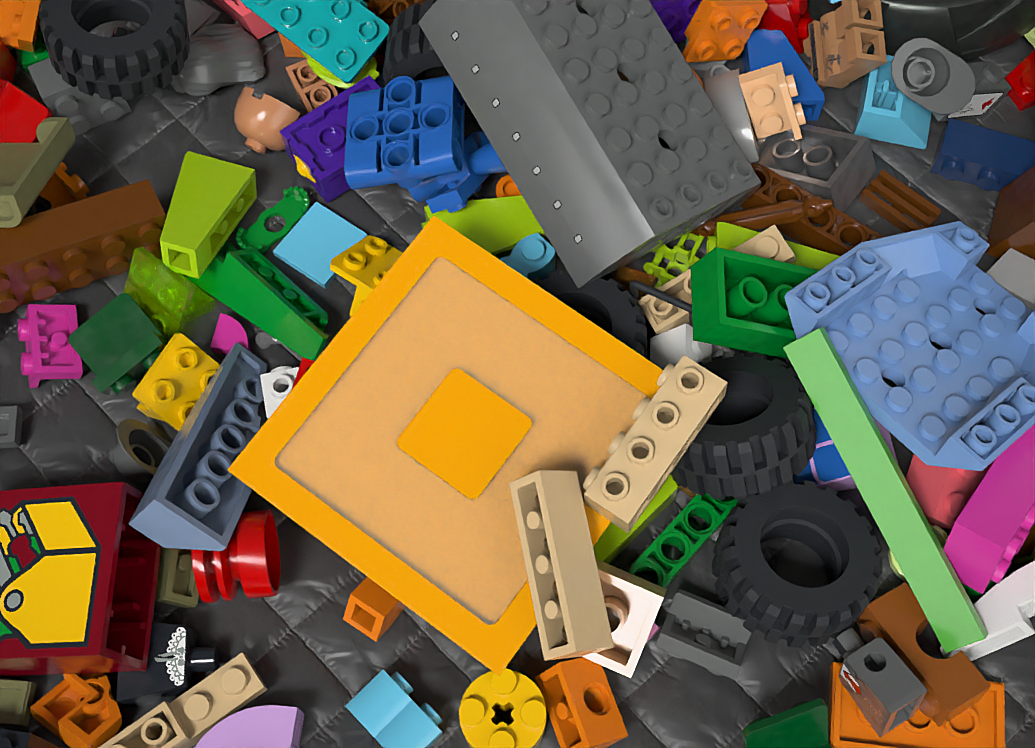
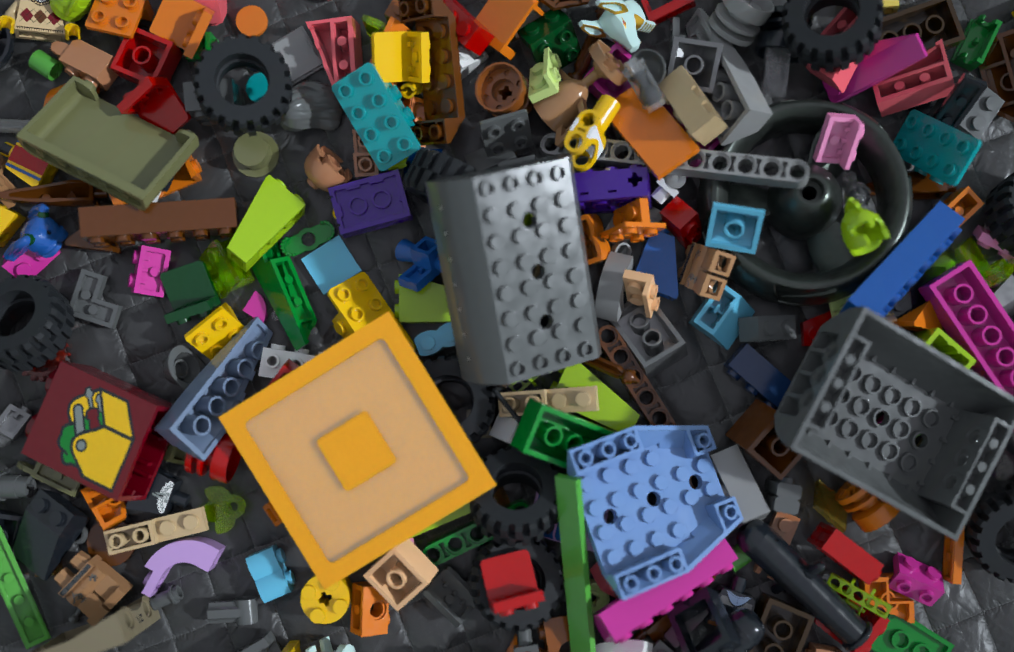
camera: 15 degrees right, 20 degrees up
(157, 144) = (255, 155): none -> olive piece
(272, 651) = (219, 508): none -> clear neon green plate
(404, 133) = (378, 242): blue connector -> none
(560, 565) = (375, 553): tan brick -> none
(654, 443) = (455, 507): tan brick -> none
(792, 541) = (510, 582): none -> red bracket
(902, 200) = (701, 399): reddish brown tile -> none
(932, 76) = (742, 323): dark grey piece -> none

